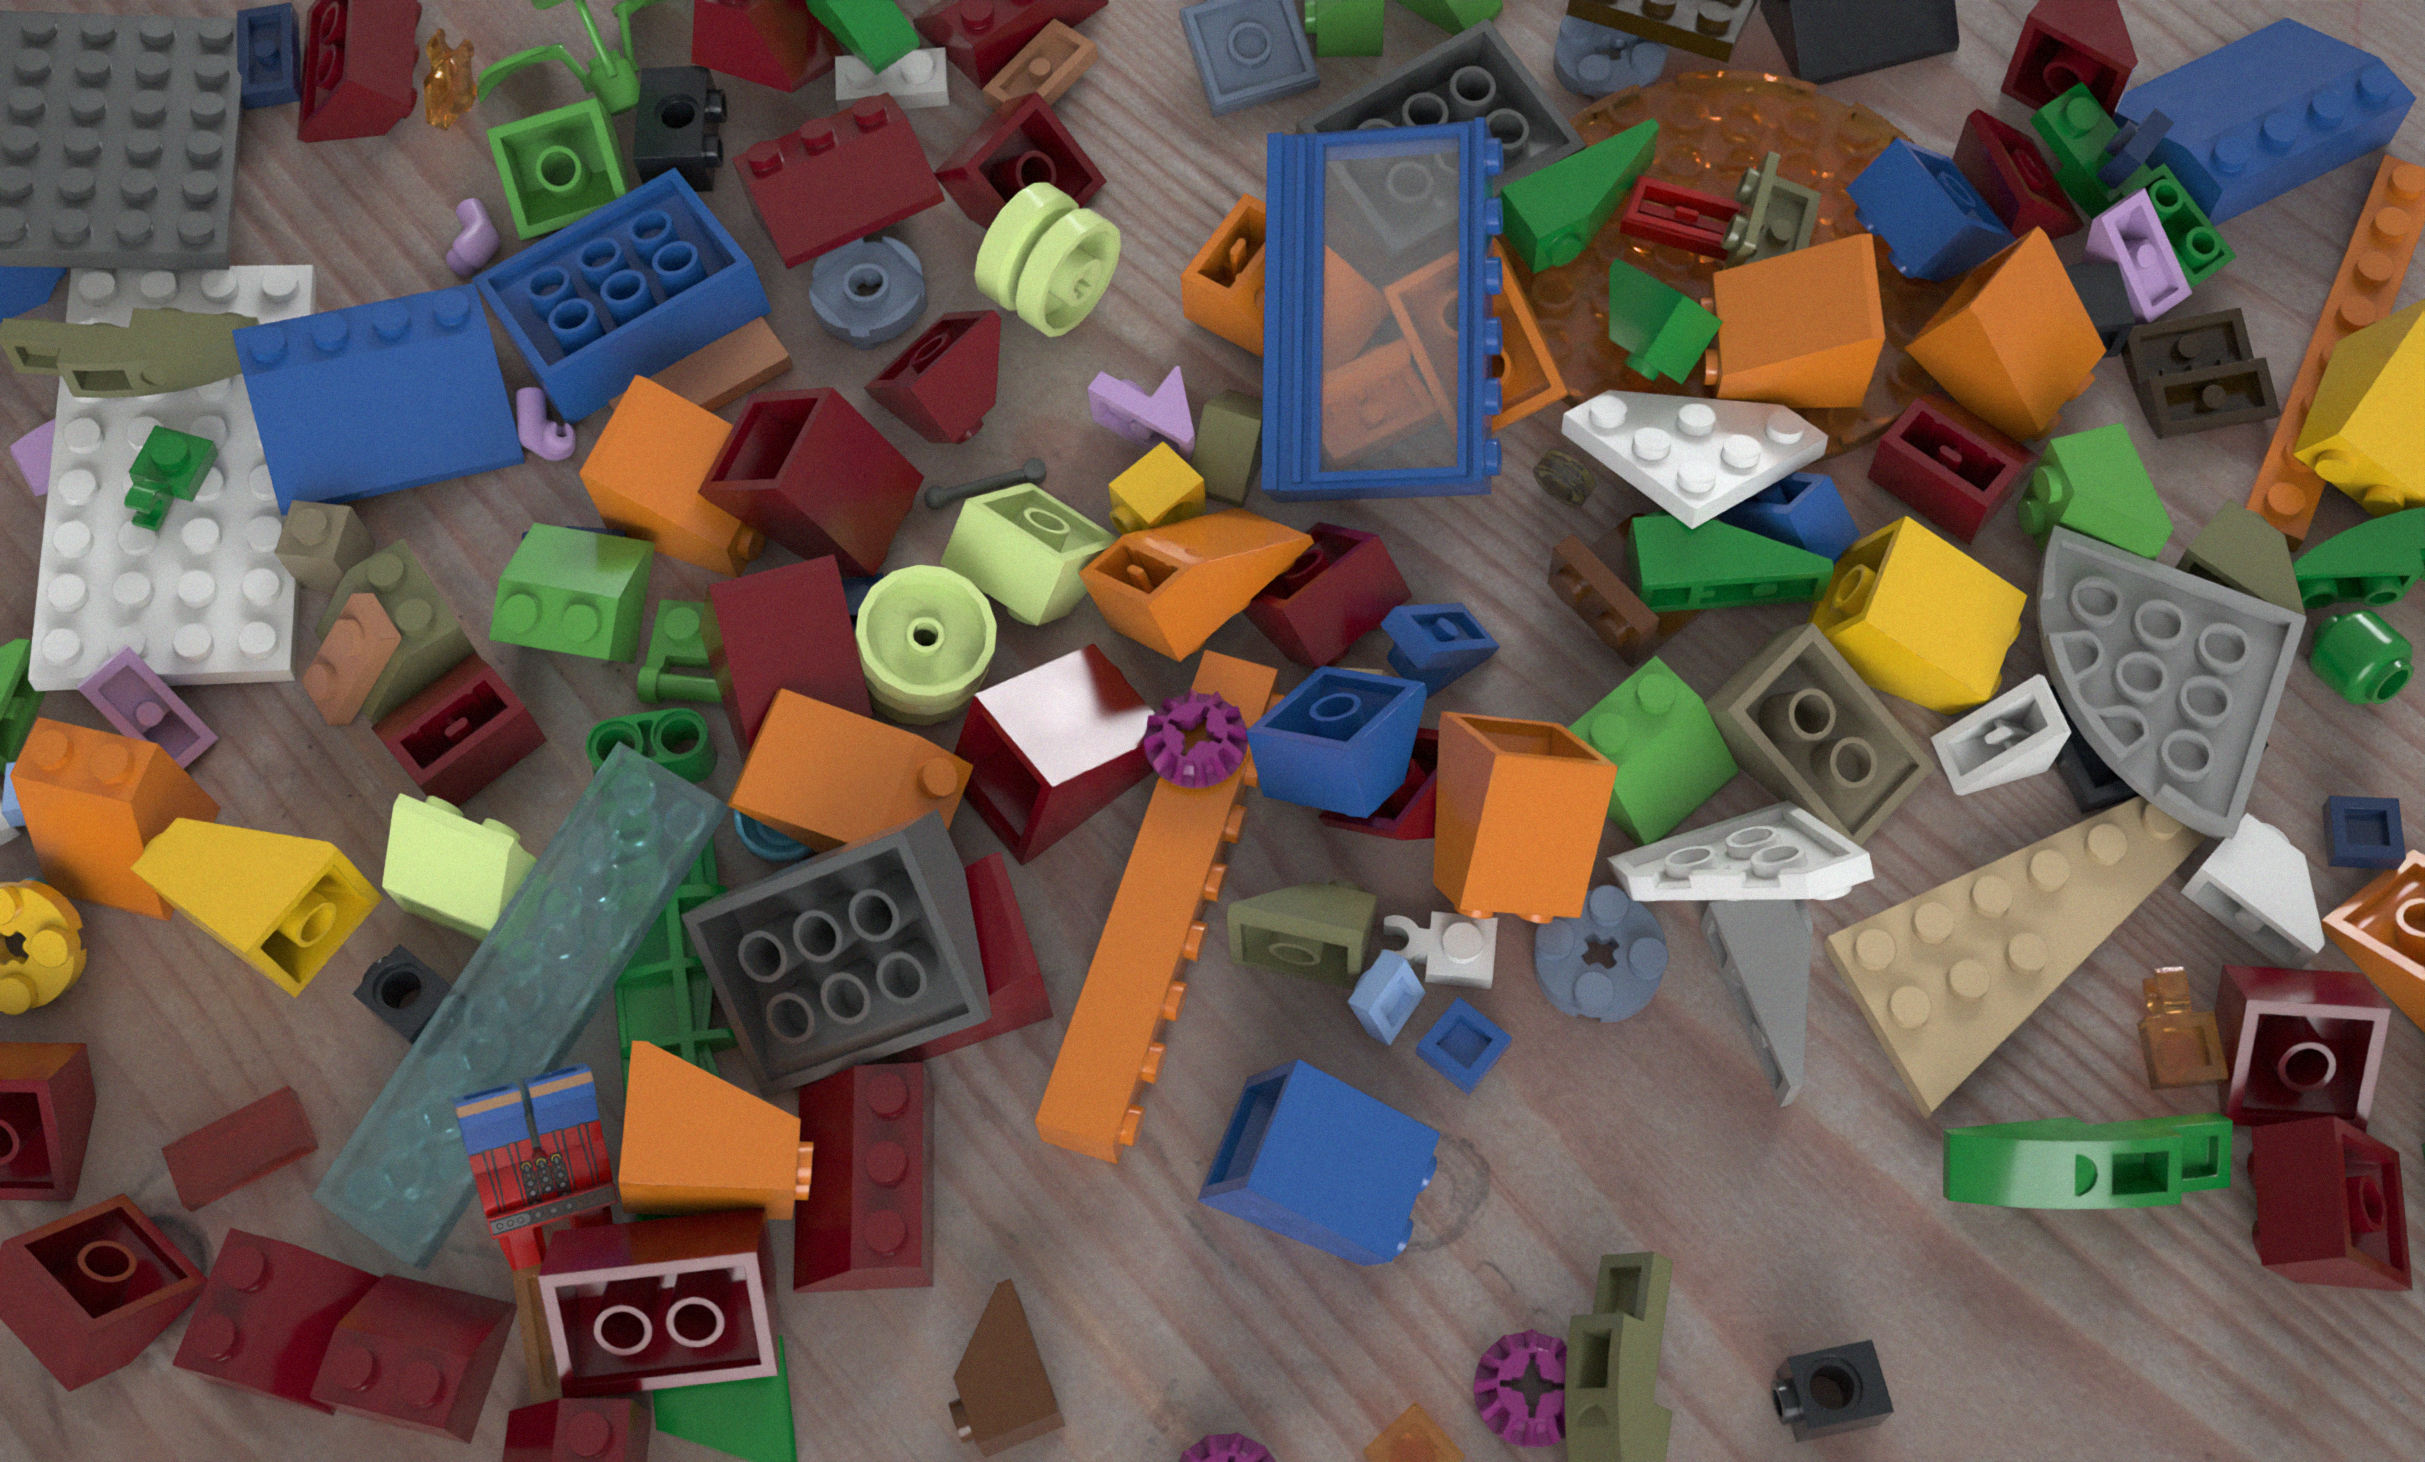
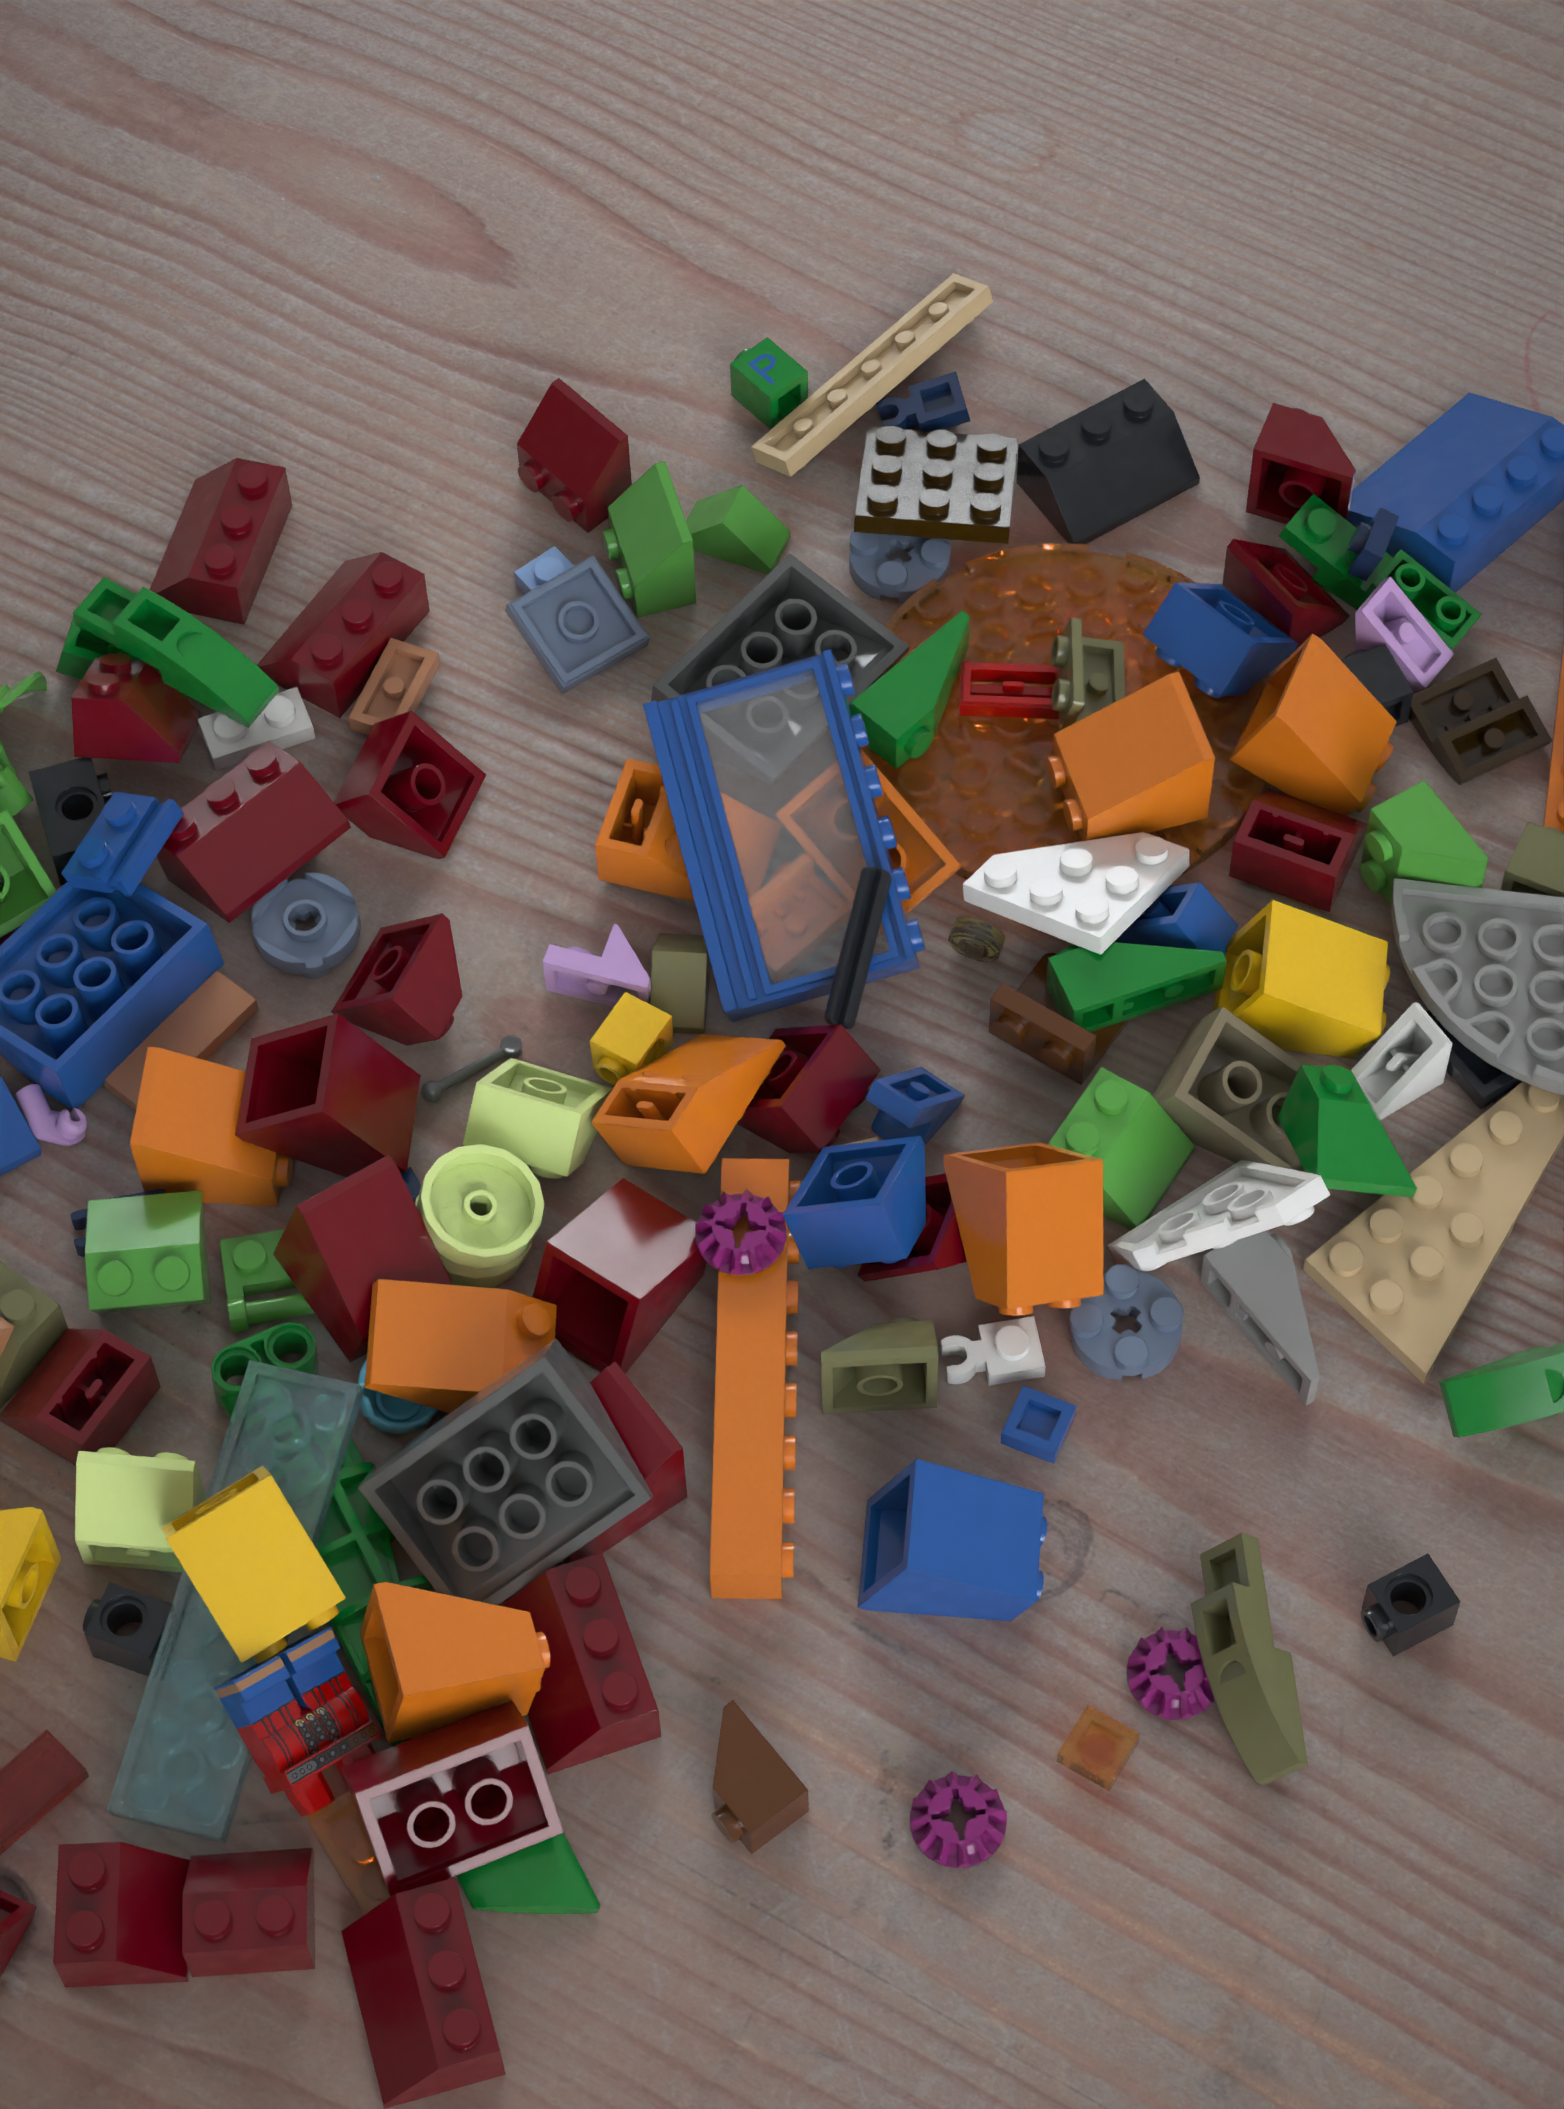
camera: 20 degrees left, 5 degrees down
(530, 975) = (254, 1566): none -> yellow slope
(698, 159) = (122, 843): none -> blue plate
(1047, 259) = (468, 858): yellowish green wheel -> none
(1386, 996) = (963, 1402): light blue plate -> none
(1421, 454) = (858, 947): none -> black axle
(1656, 324) = (1018, 788): green slope -> none
(1910, 805) = (1341, 1134): none -> green slope

